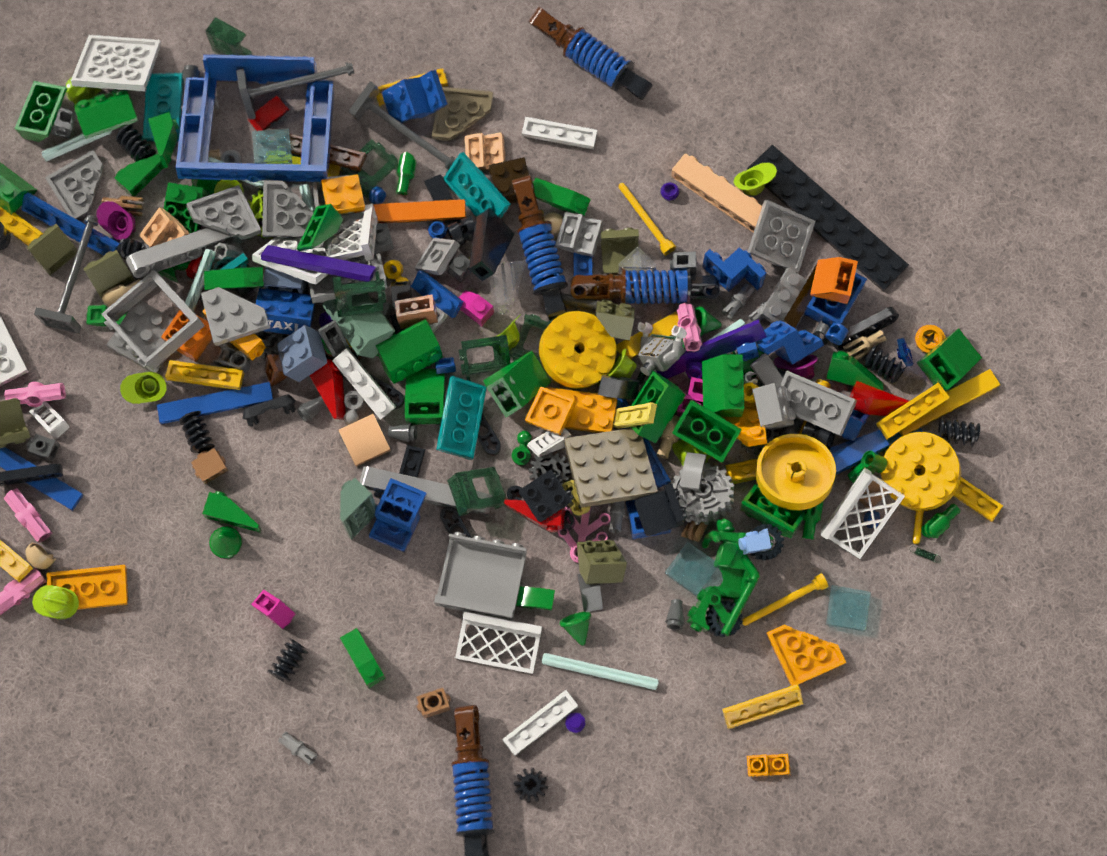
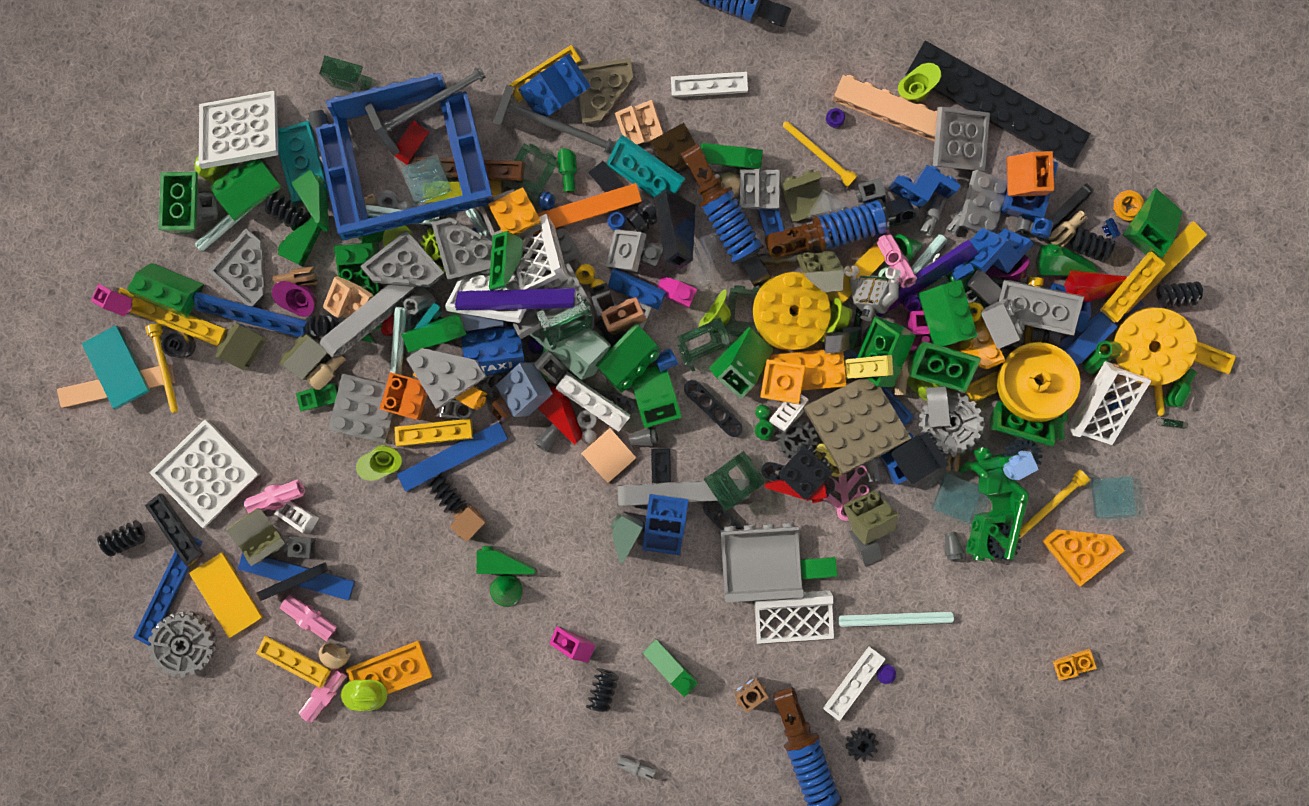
camera: 15 degrees left, 15 degrees up
(58, 318) = (272, 414): dark grey tile -> none
(130, 299) = (335, 381): light grey window -> none
(251, 413) = (493, 457): black piece -> none
(461, 418) = (698, 412): teal tile -> none
(577, 626) = (863, 581): green hat -> none
(762, 706) = (1056, 612): yellow tile -> none
(801, 302) = (998, 197): dark brown sticker -> none

